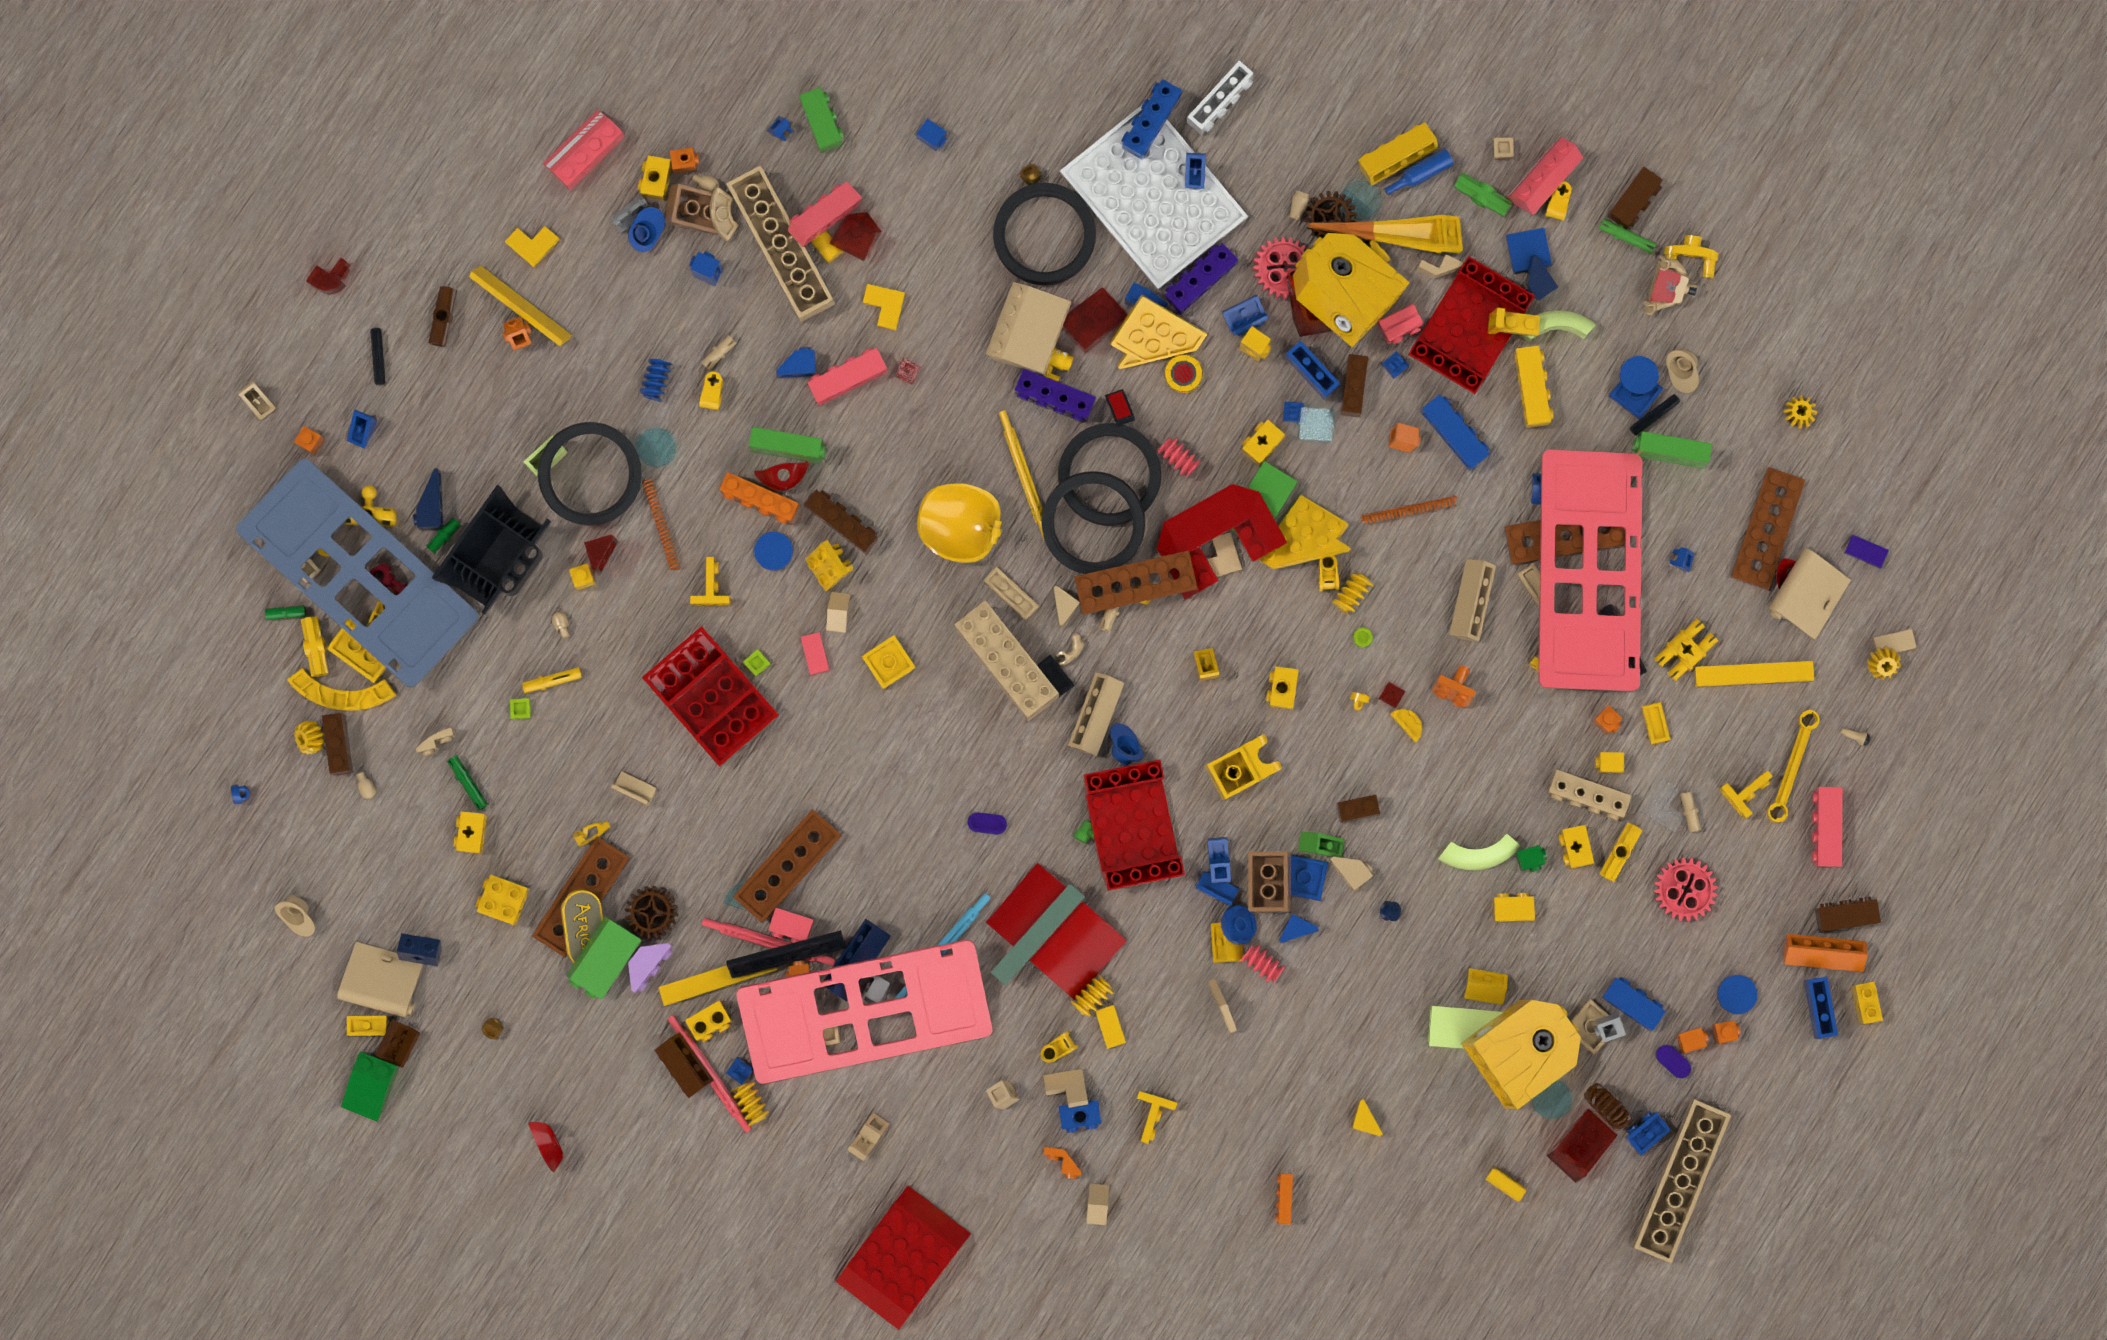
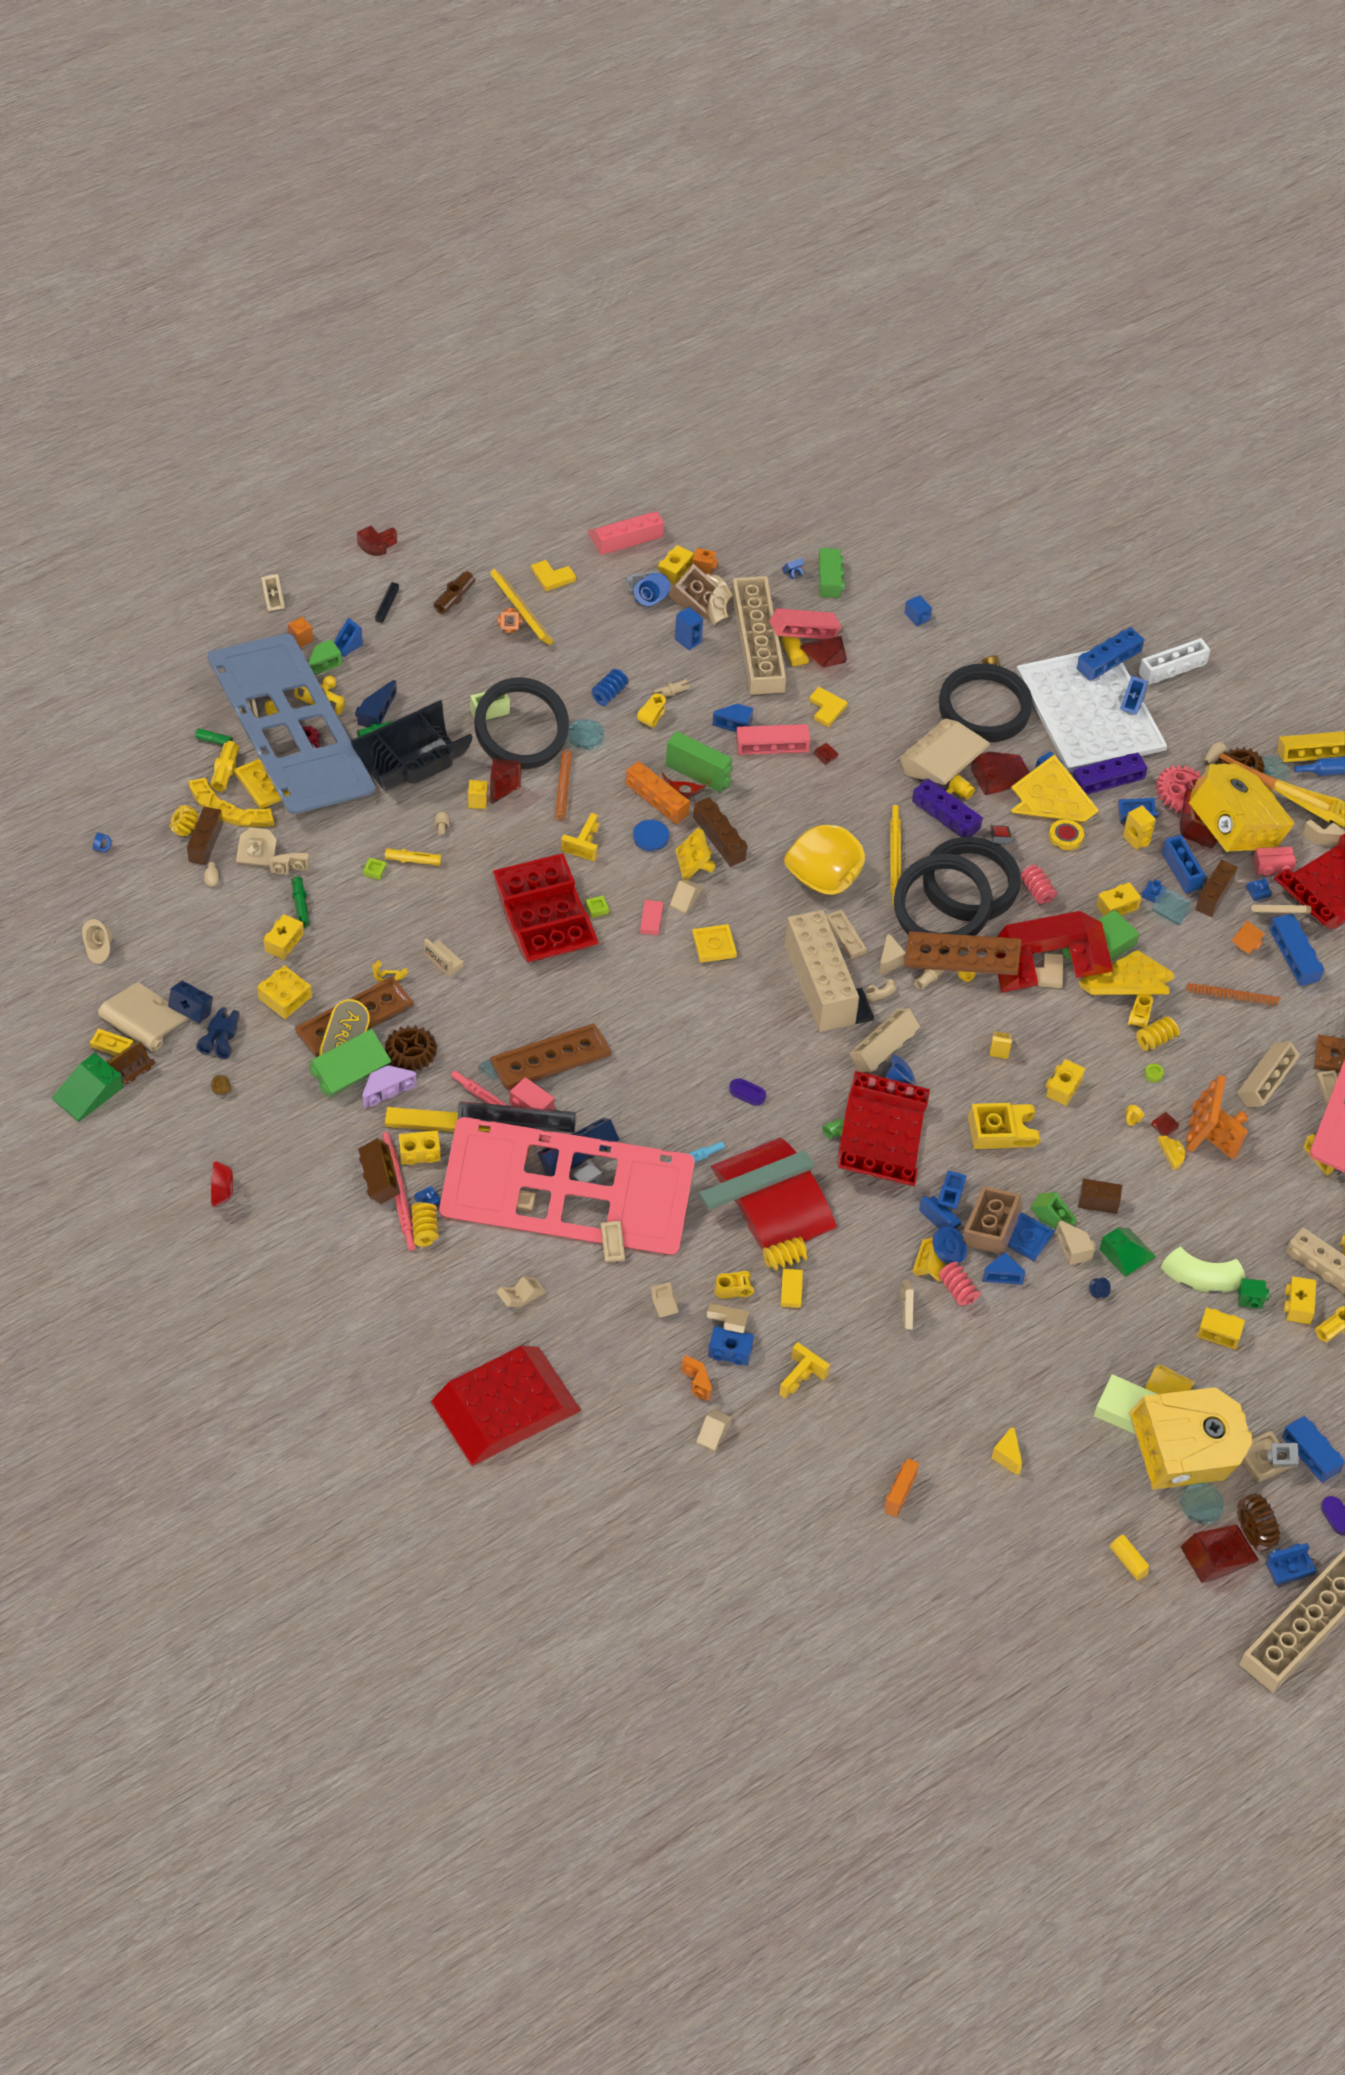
camera: 15 degrees right, 30 degrees down
(348, 462) = (325, 657): none -> bright green slope
(395, 736) = (256, 847): none -> tan piece
(463, 963) = (220, 1027): none -> dark blue piece
(929, 1048) = (612, 1241): none -> tan tile
(1402, 856) = (1125, 1250): none -> green slope
(1426, 390) = (1281, 909): none -> tan tile
(1428, 681) = (1205, 1113): none -> orange plate

